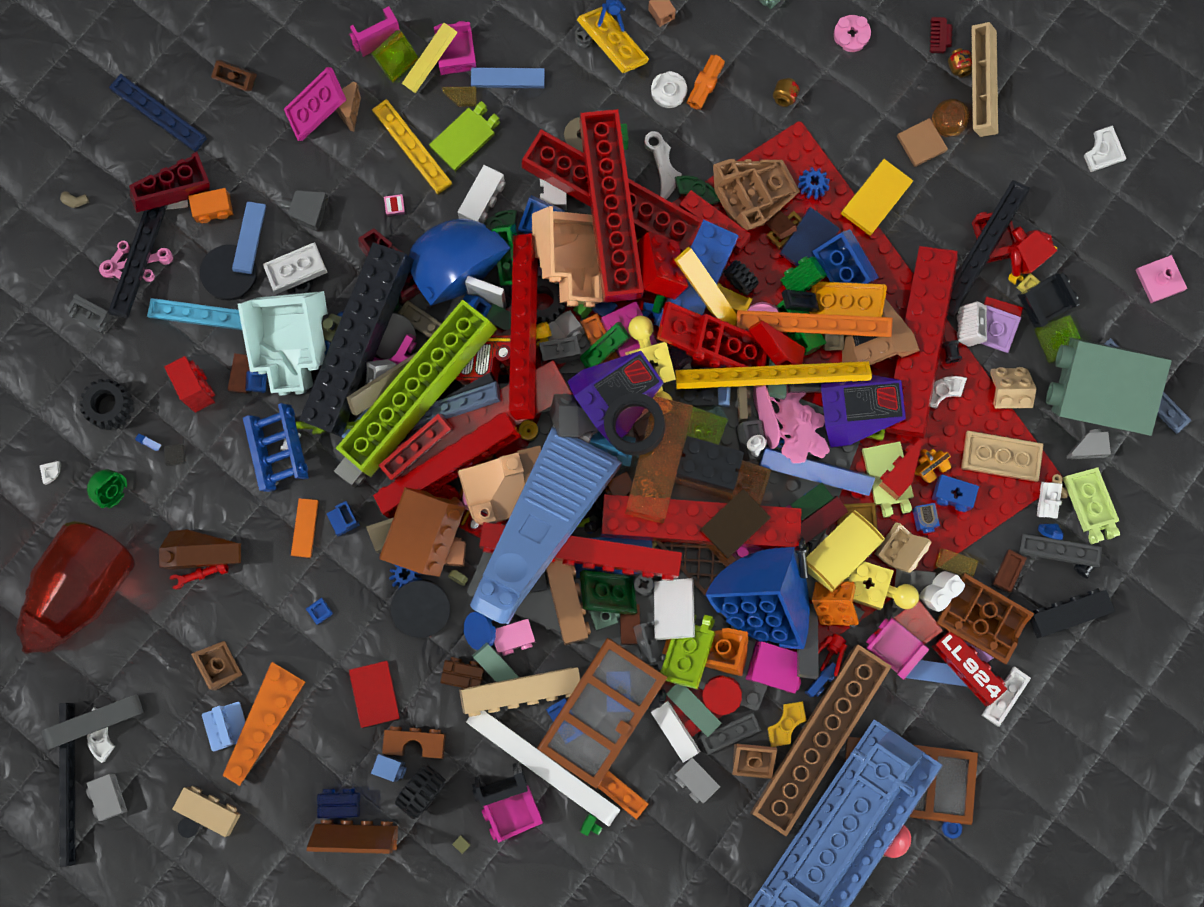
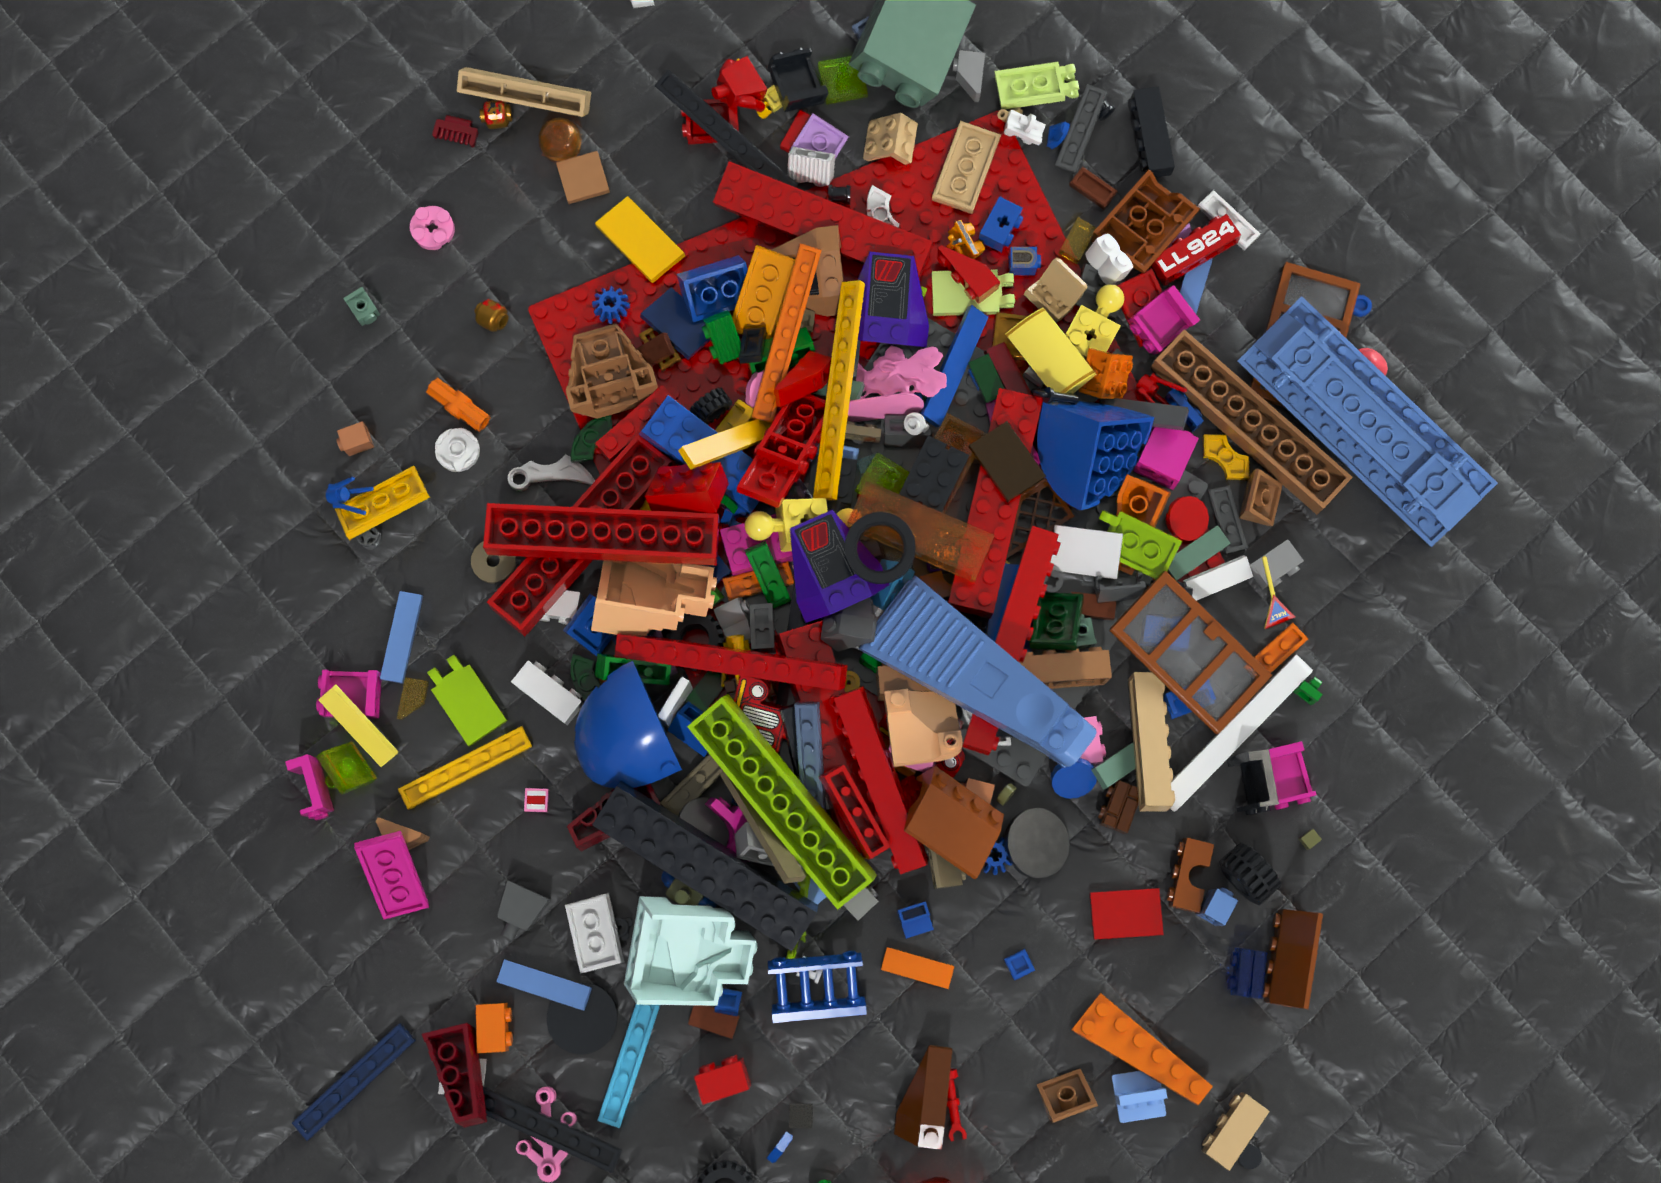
camera: 80 degrees left, 0 degrees up
(233, 75) = (328, 974): reddish brown brick -> none
(655, 788) = (1277, 611): none -> piece

